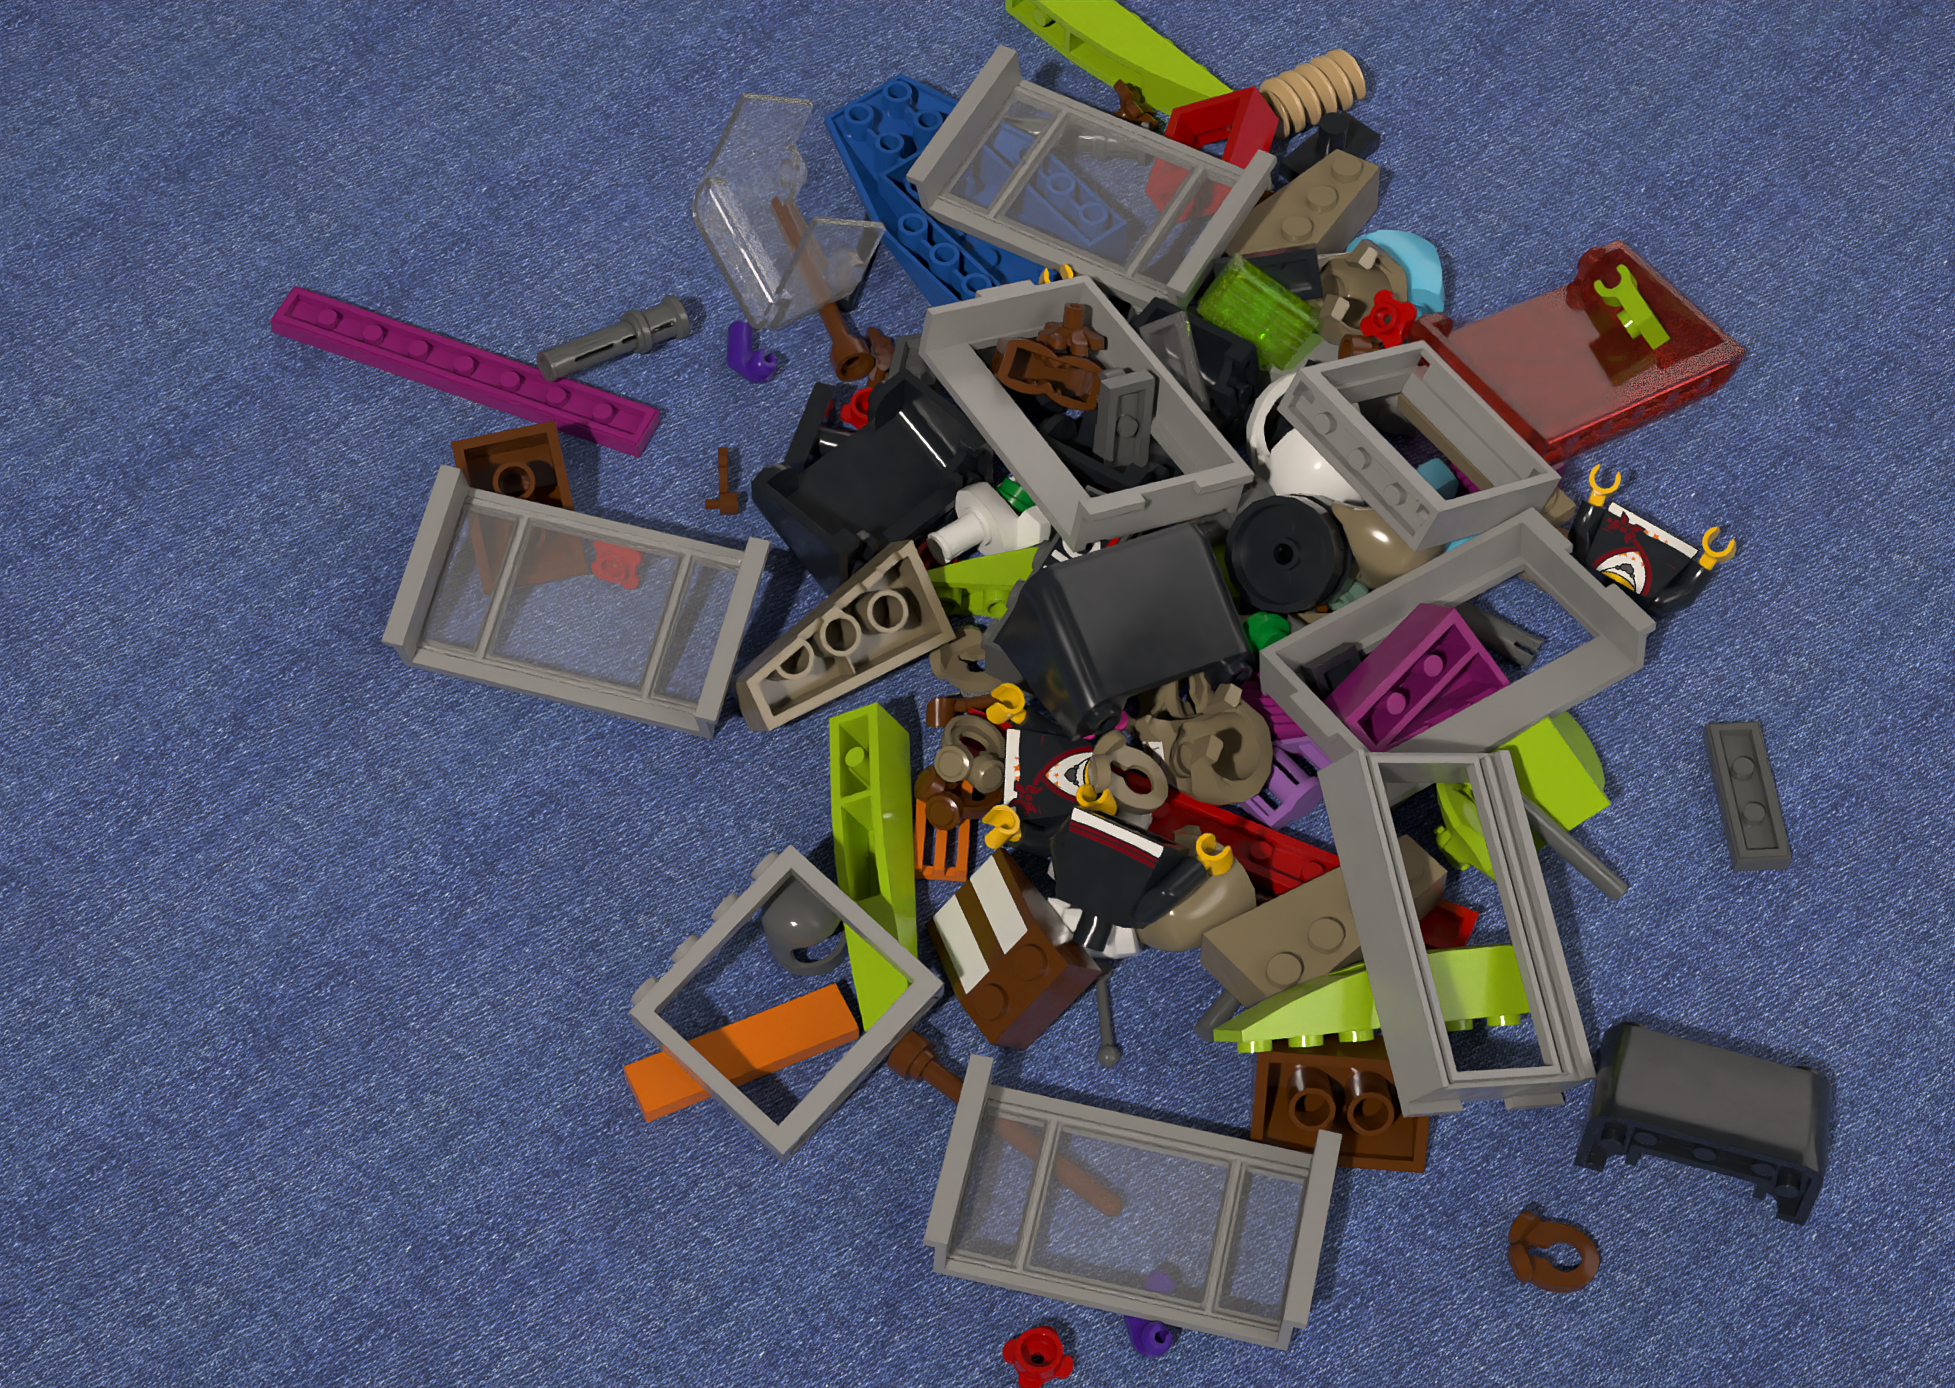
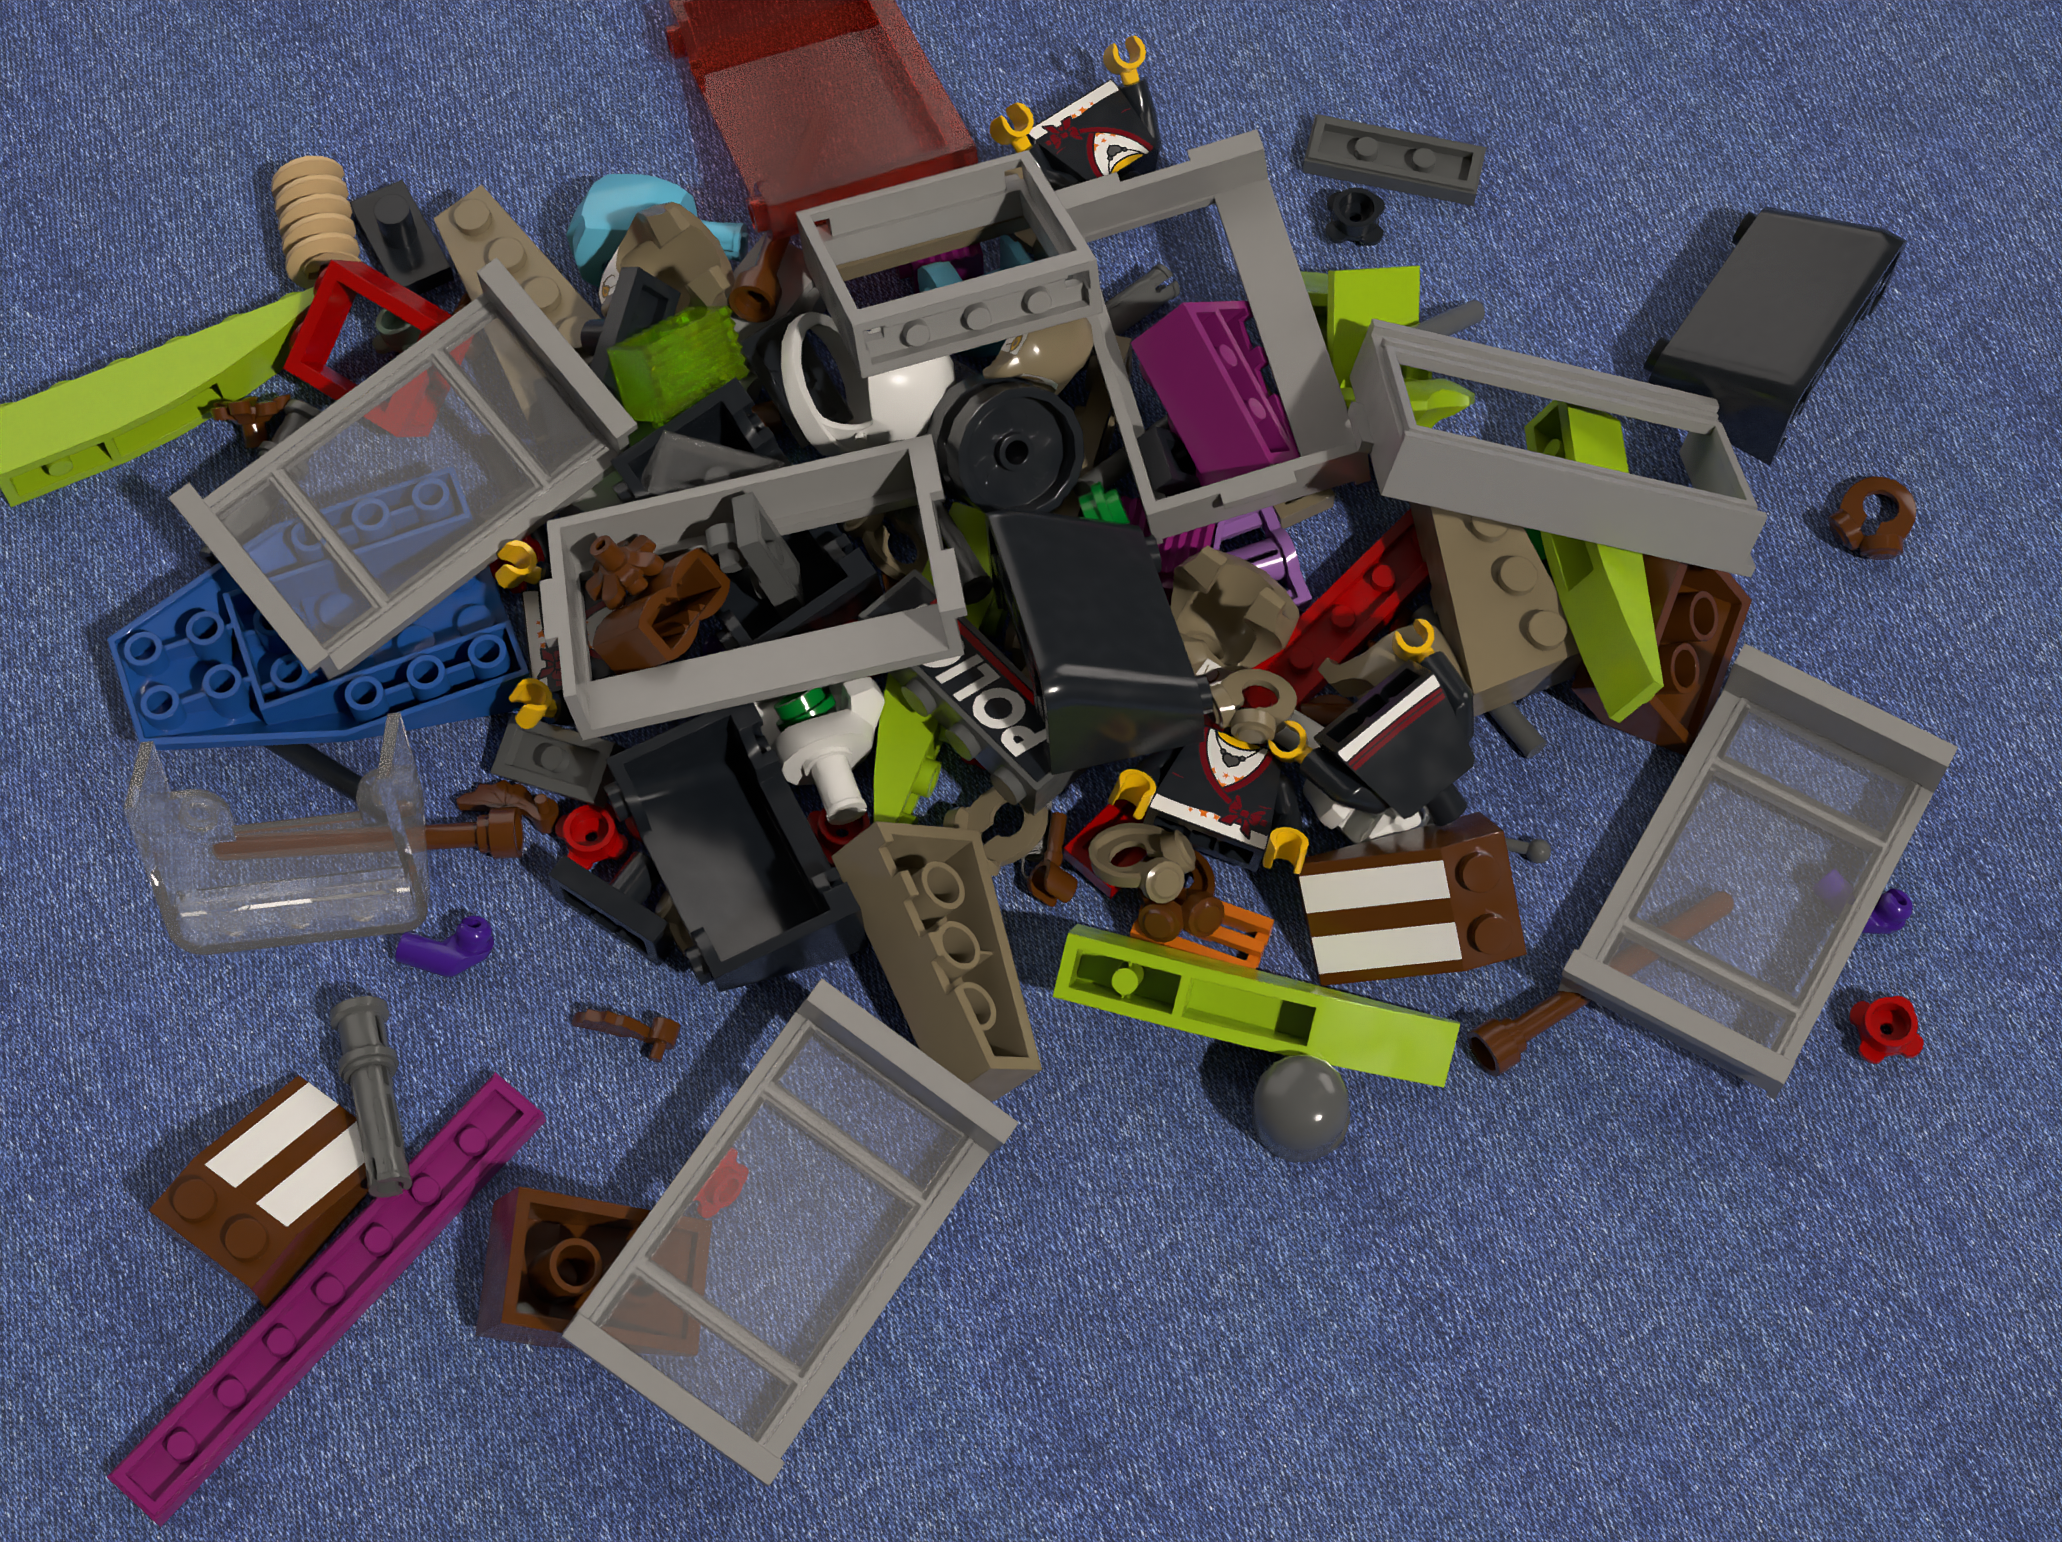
camera: 70 degrees left, 10 degrees up
(520, 302) = (269, 1191): none -> reddish brown slope
(746, 1050) = (1436, 1228): orange tile -> none
(853, 1067) = (1520, 1107): light grey window -> none
(1402, 318) = (737, 223): red plate -> none
(1637, 315) = (774, 21): lime plate -> none
(1672, 765) = (1358, 204): none -> black plate

